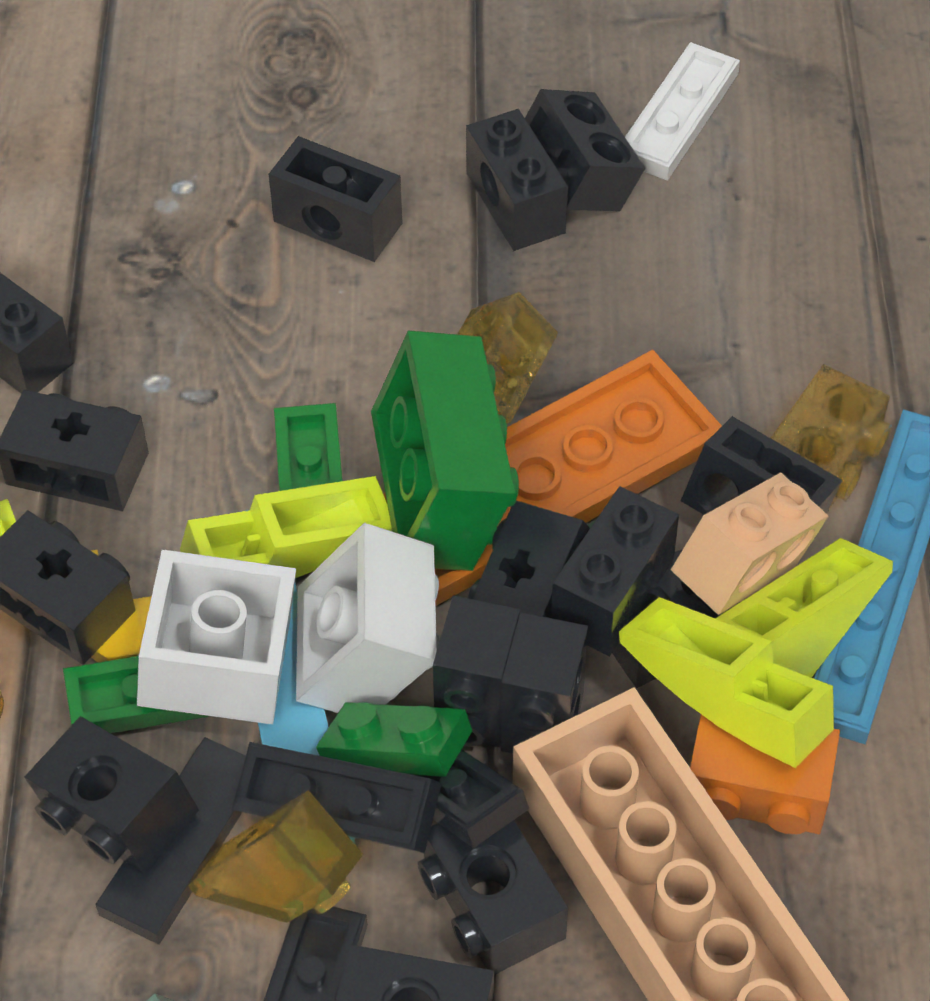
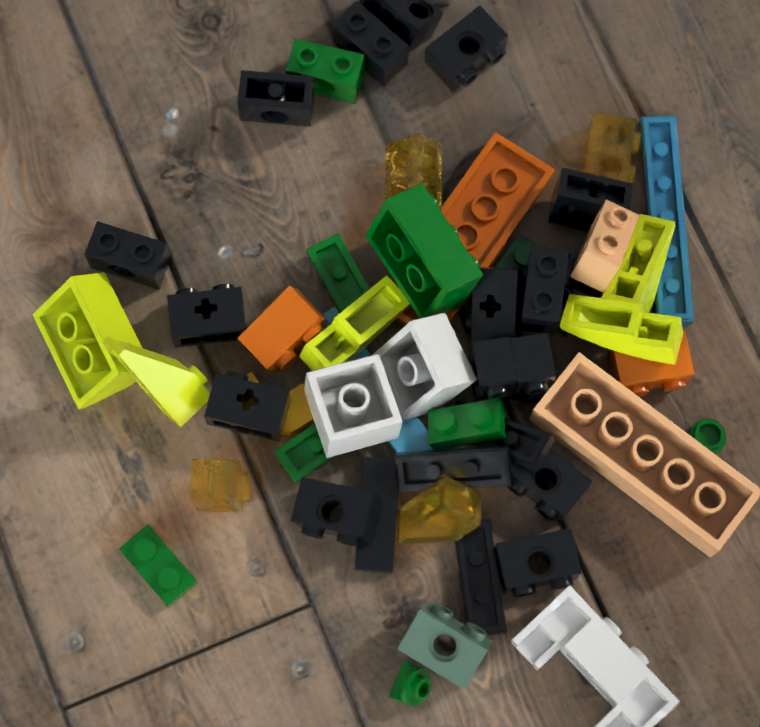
camera: 25 degrees left, 20 degrees up
(157, 496) = (283, 330): none -> orange brick
(440, 193) = (334, 70): none -> green brick
(661, 231) = (475, 32): none -> black brick
(823, 923) = (710, 434): none -> green plate

